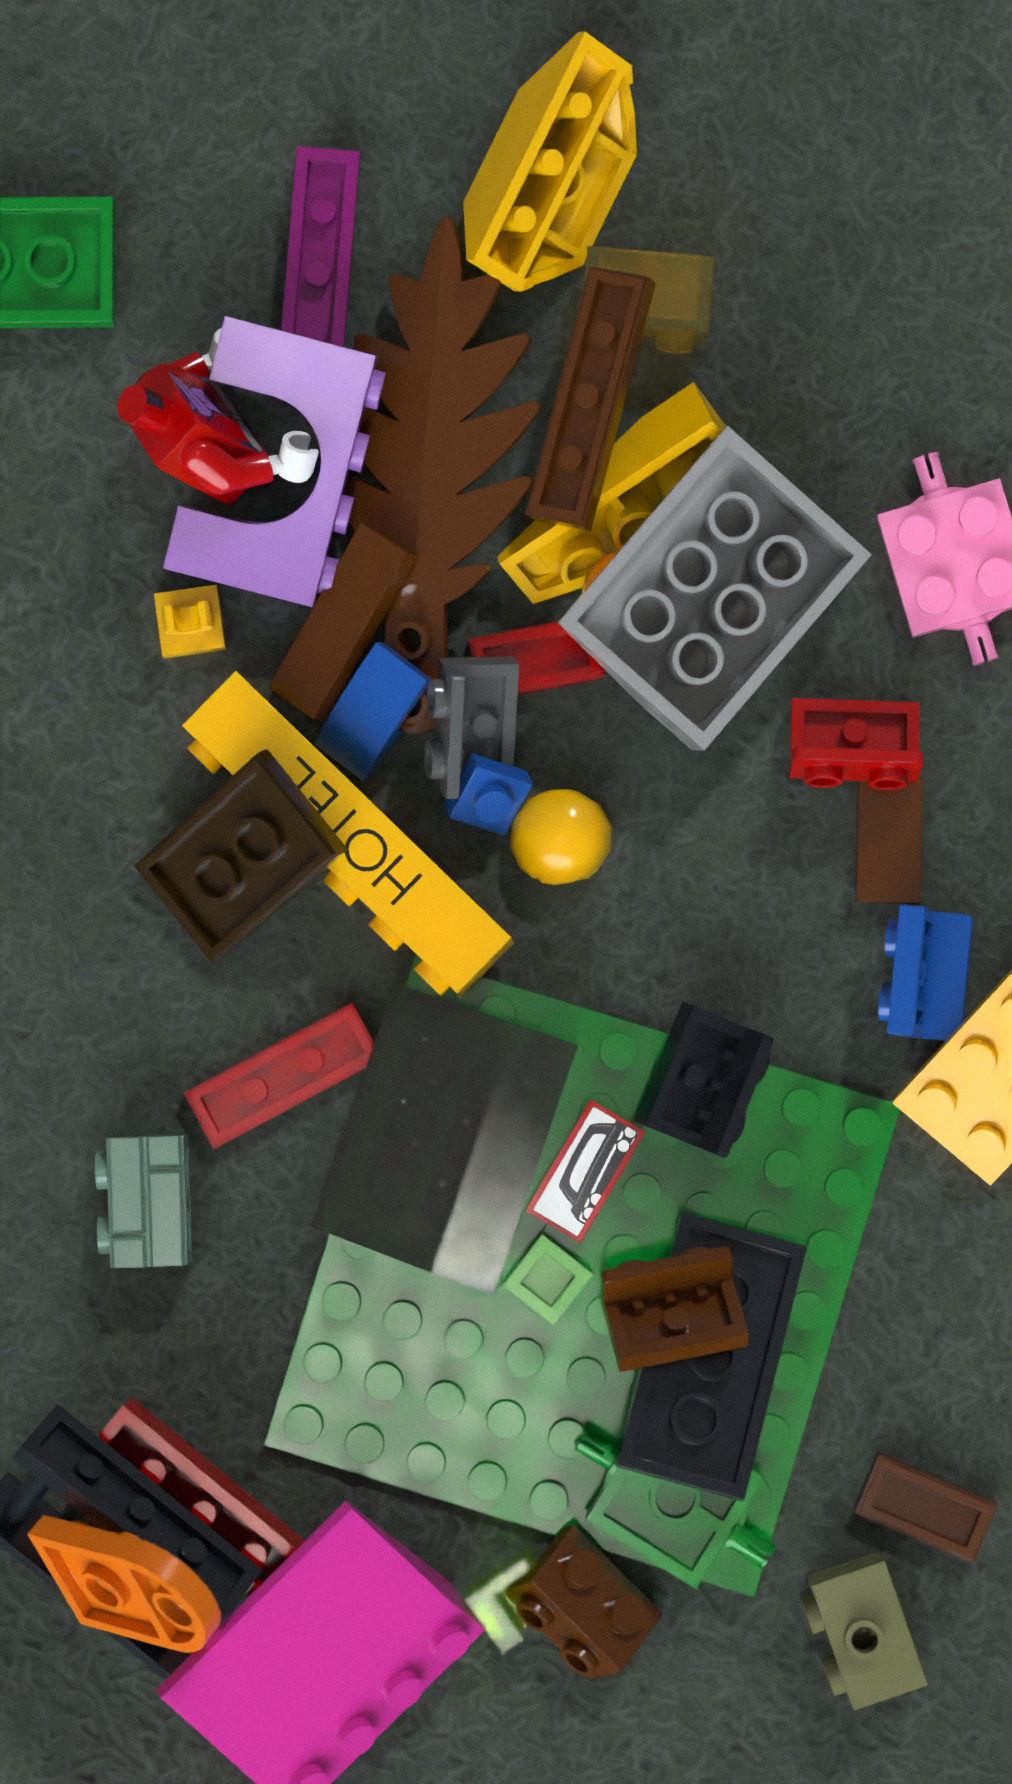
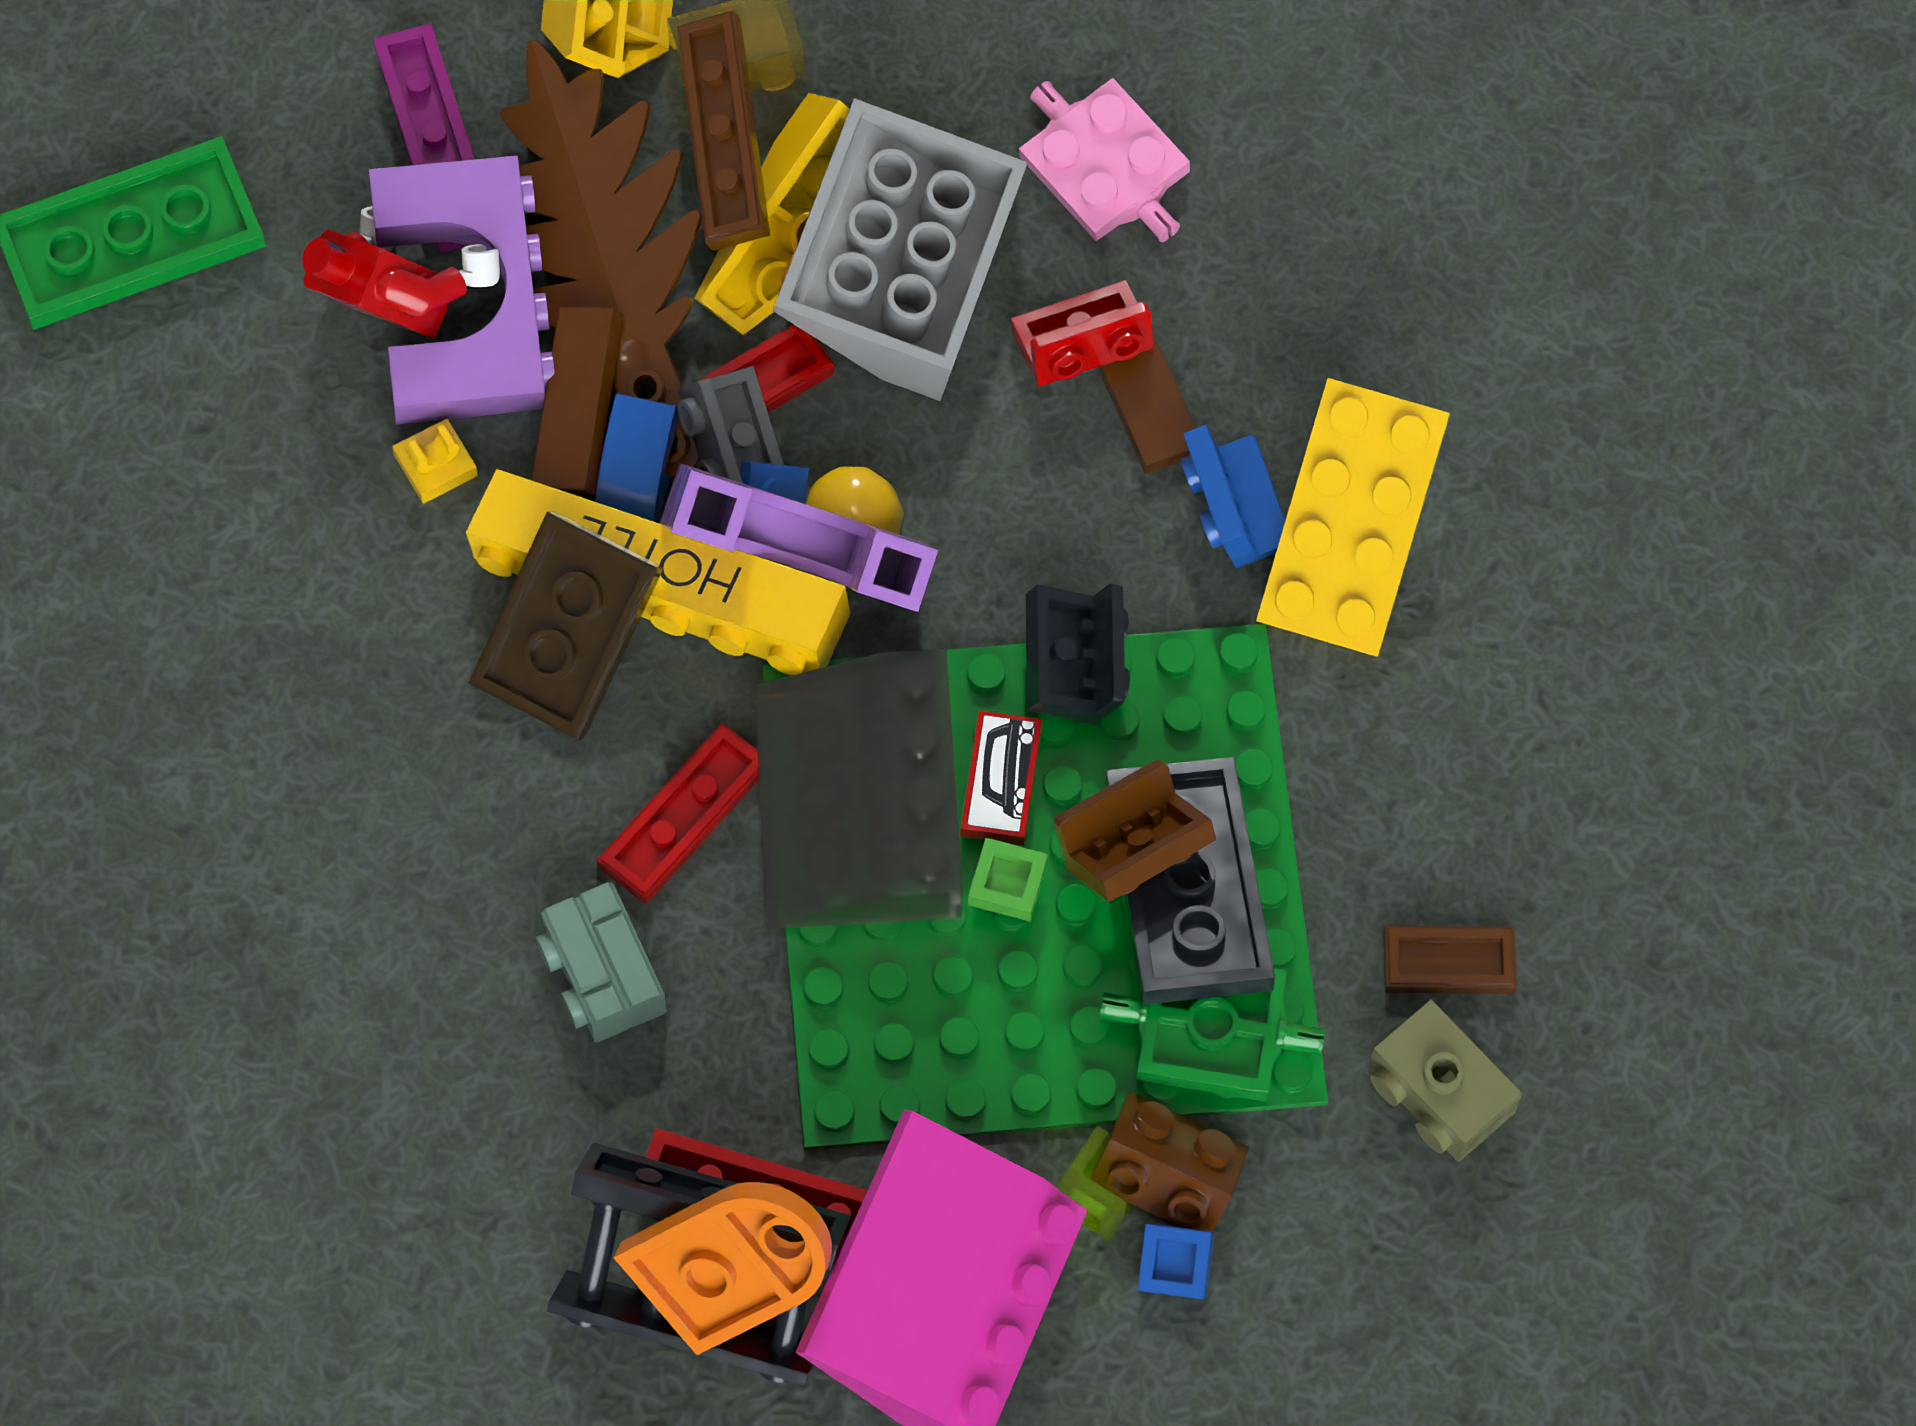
camera: 25 degrees left, 20 degrees down
(549, 1697) = (1176, 1261): none -> blue plate
(551, 914) = (799, 536): none -> medium lavender arch

